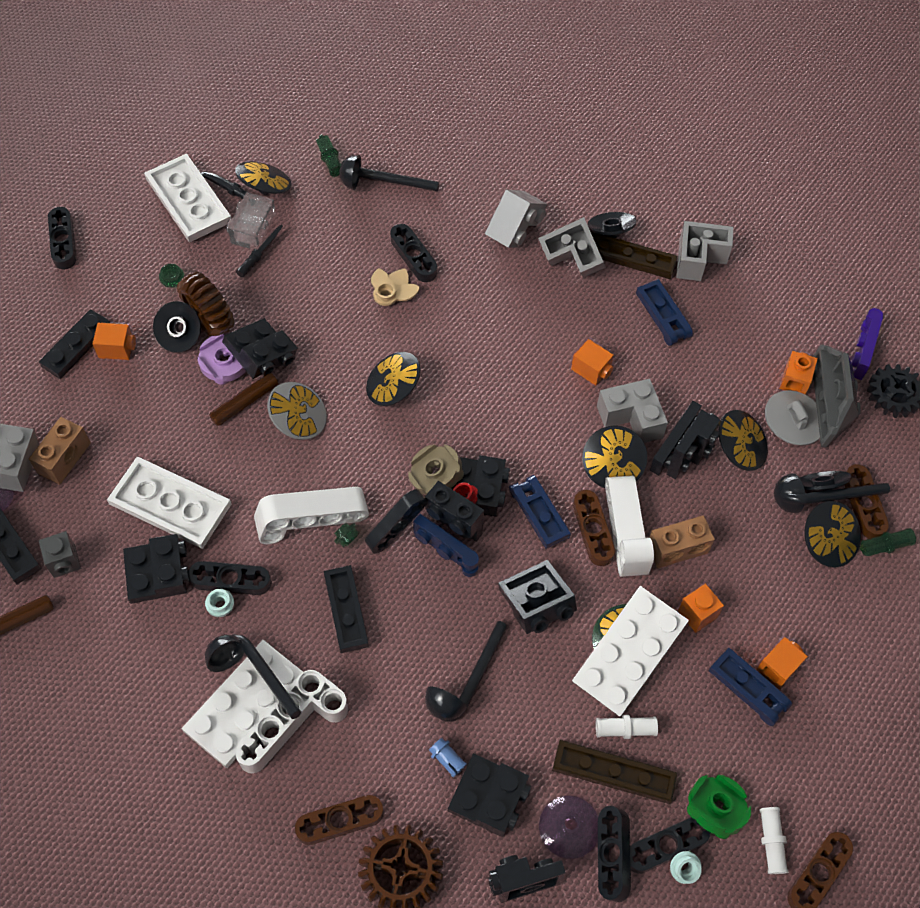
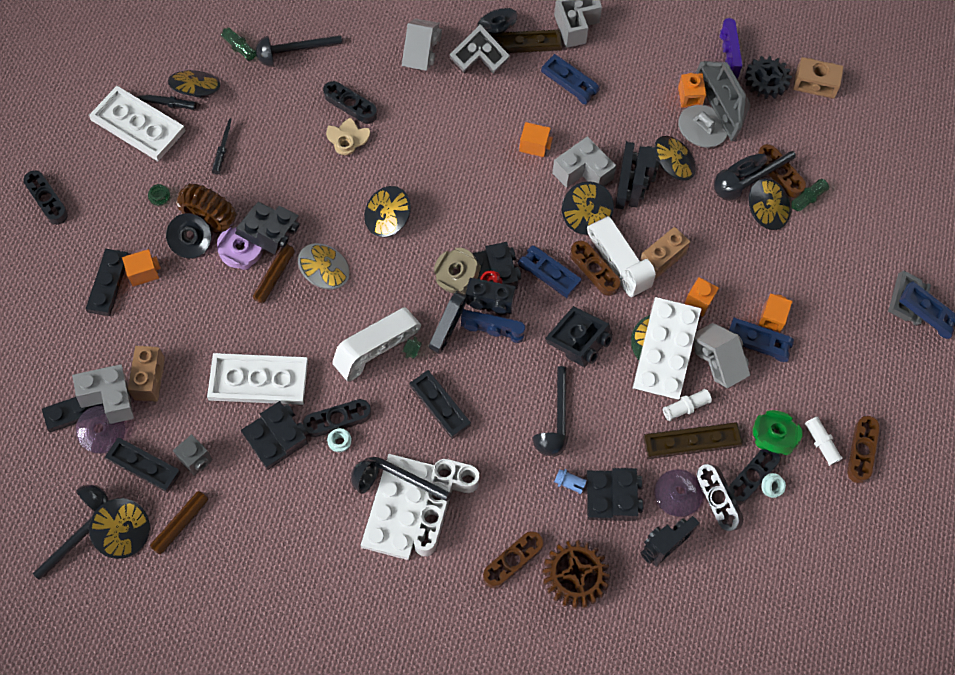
camera: 25 degrees left, 5 degrees up
(251, 221) = (203, 124): clear brick -> none
(694, 684) = (723, 353): none -> light grey brick

